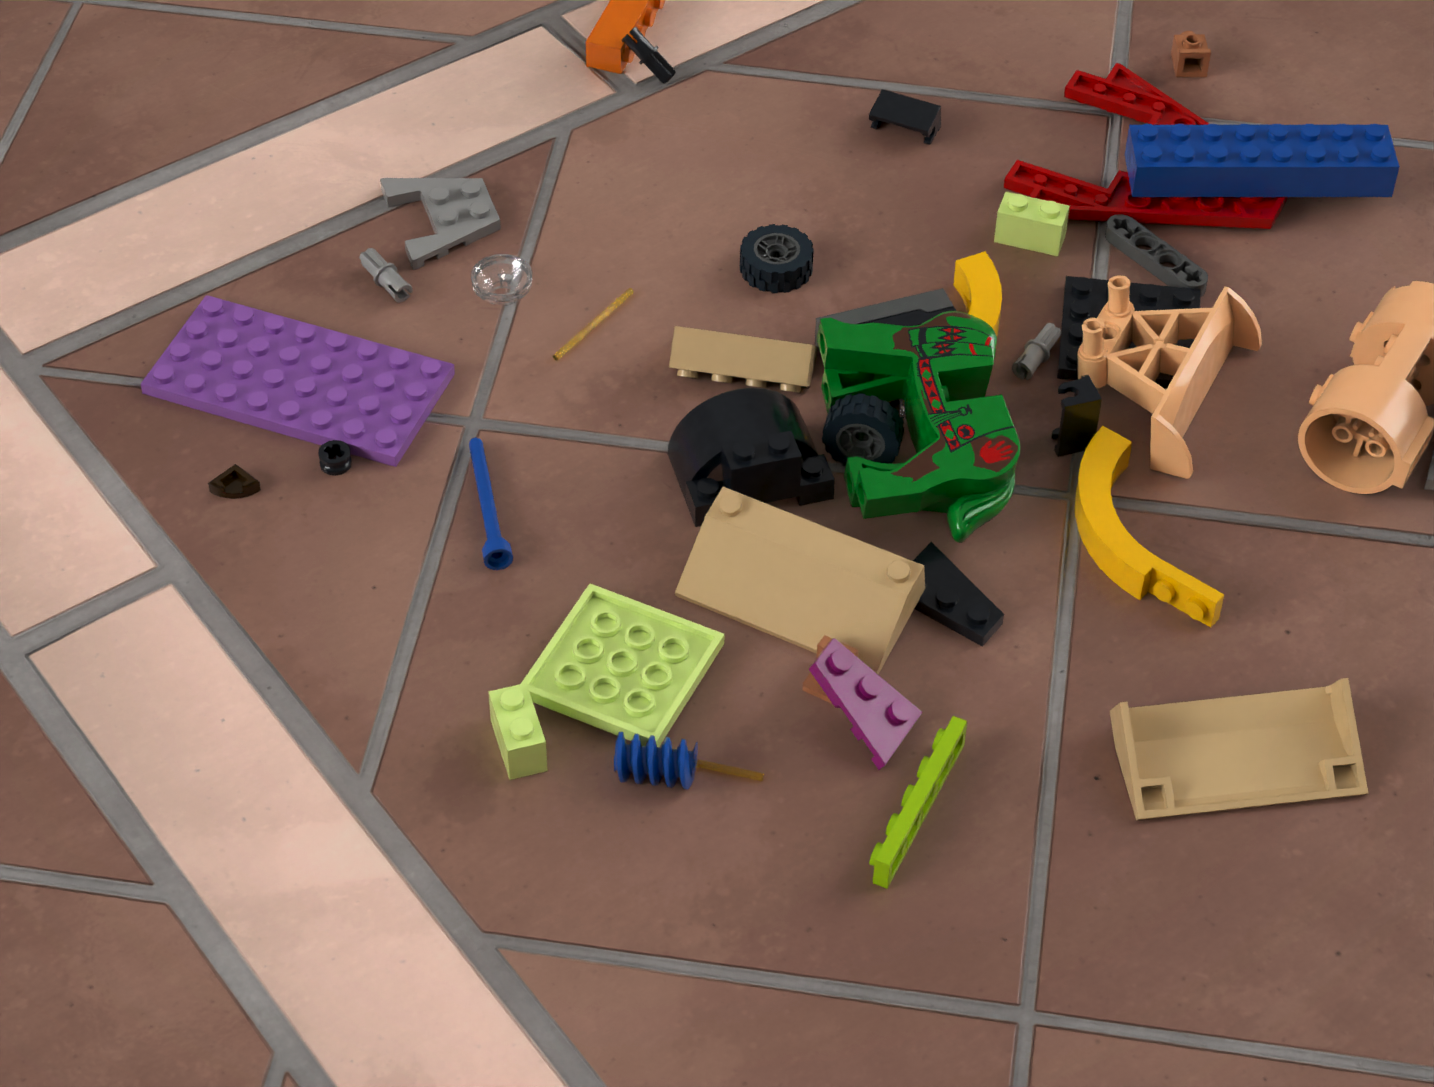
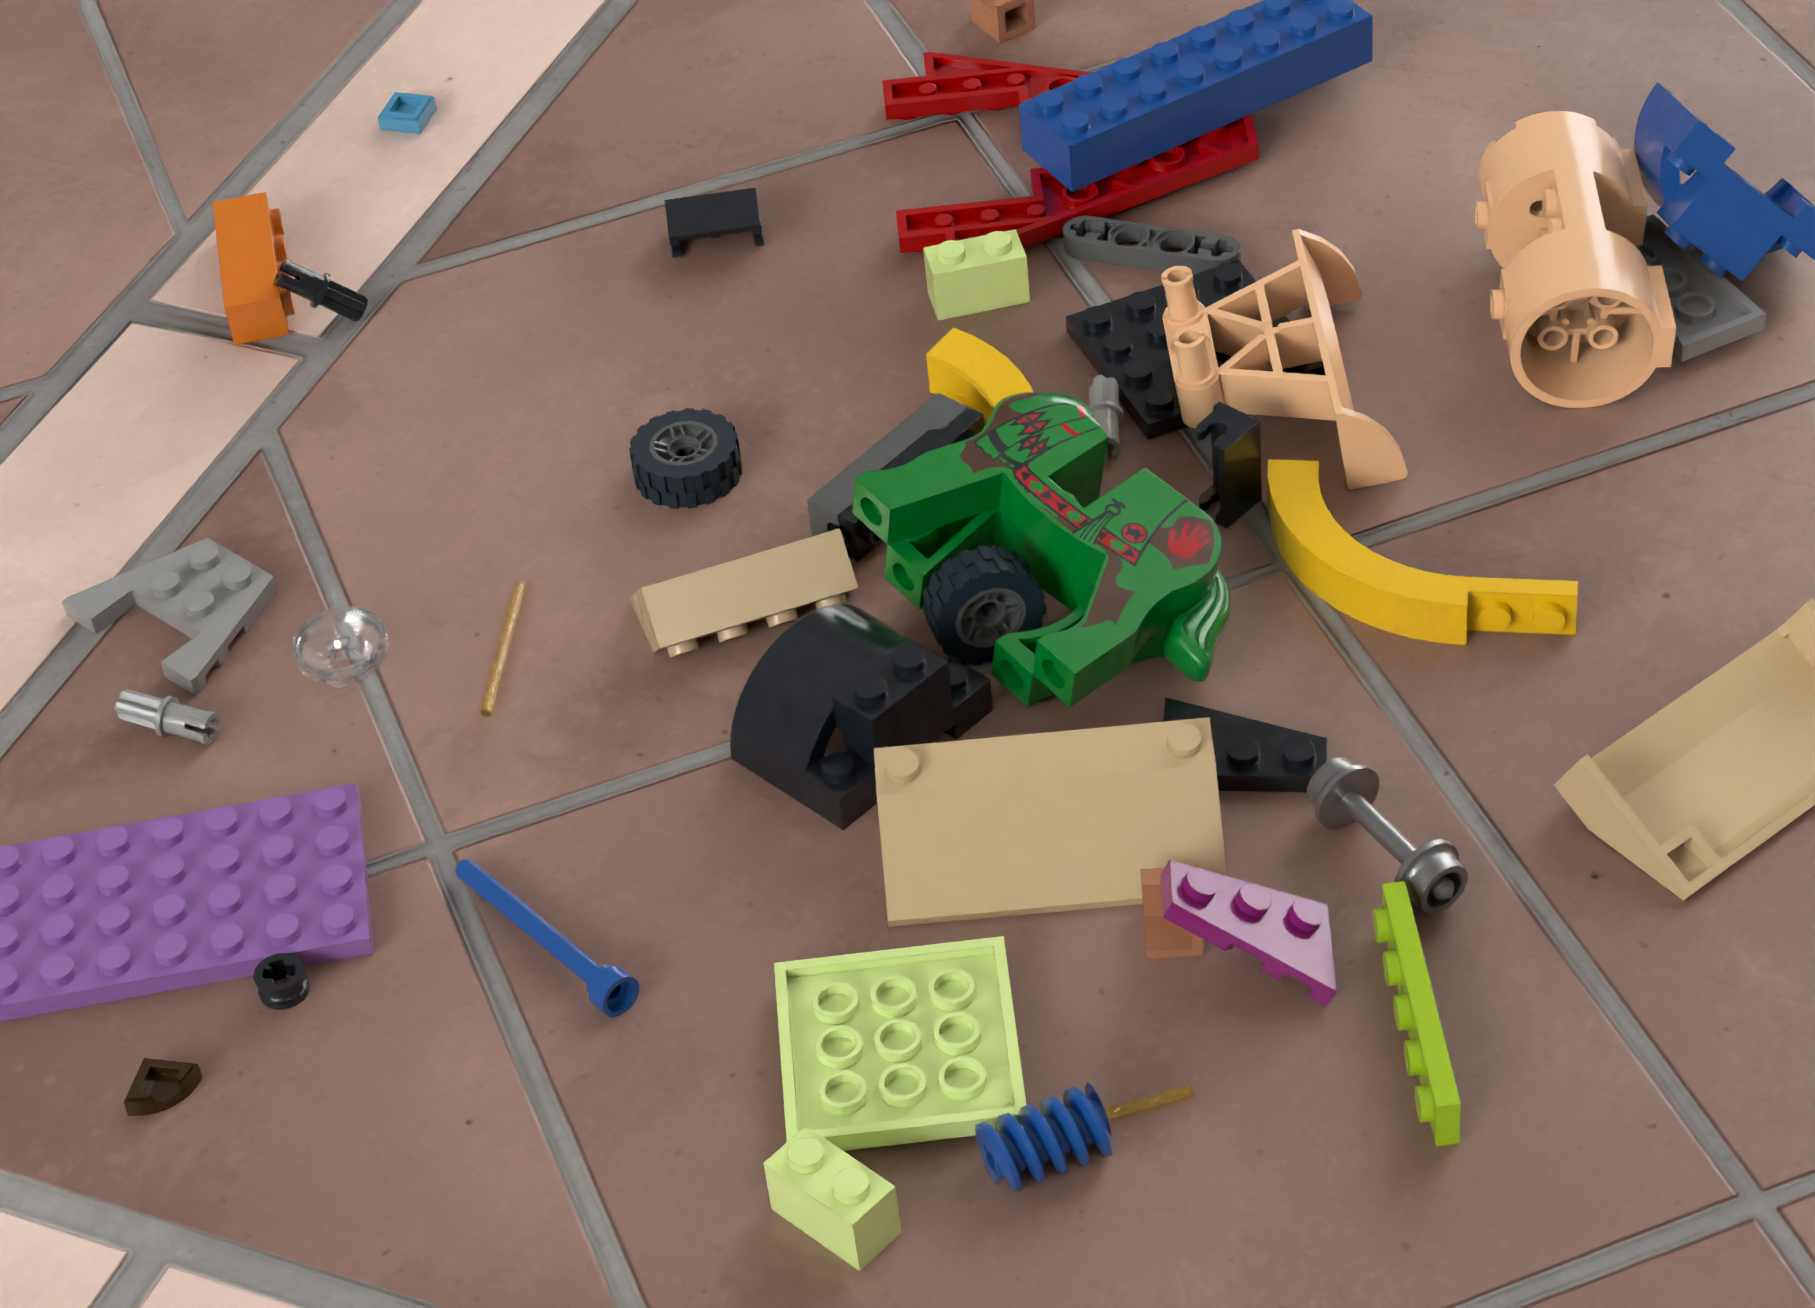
camera: 25 degrees left, 5 degrees down
(989, 724) = (1346, 795): none -> flat silver piece

